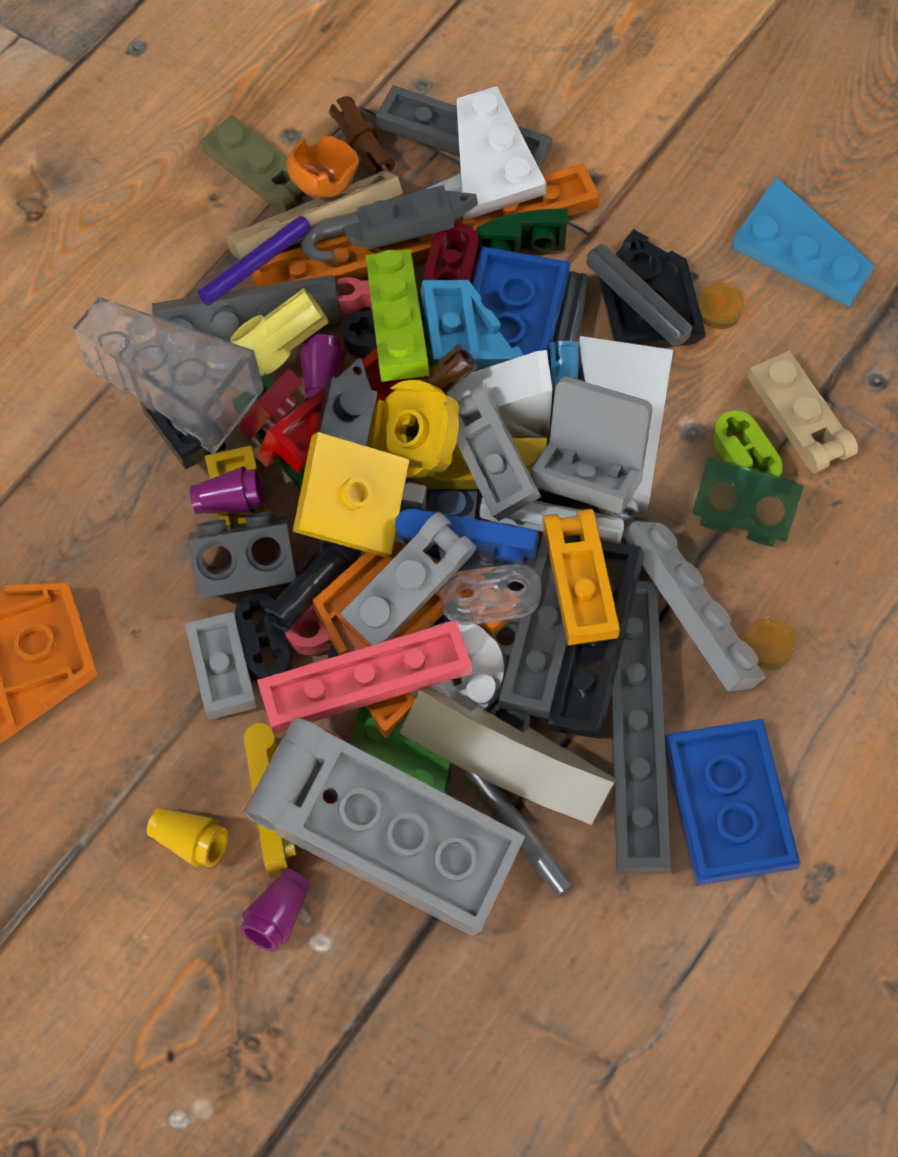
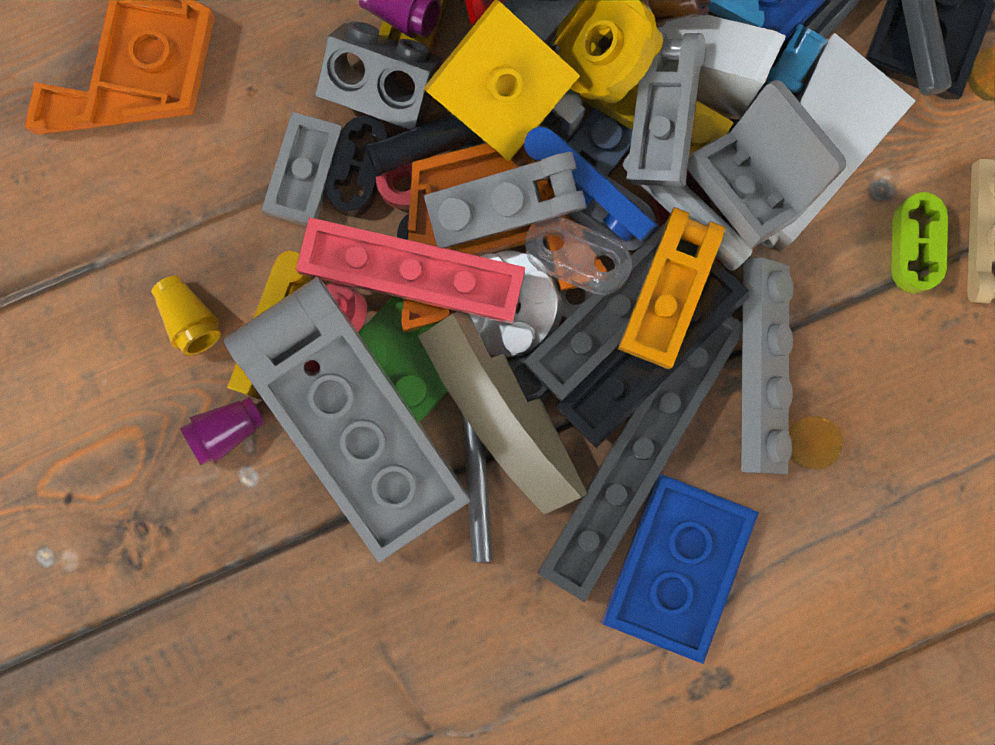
camera: 25 degrees right, 20 degrees up
(750, 487) = (897, 288): clear green brick -> none

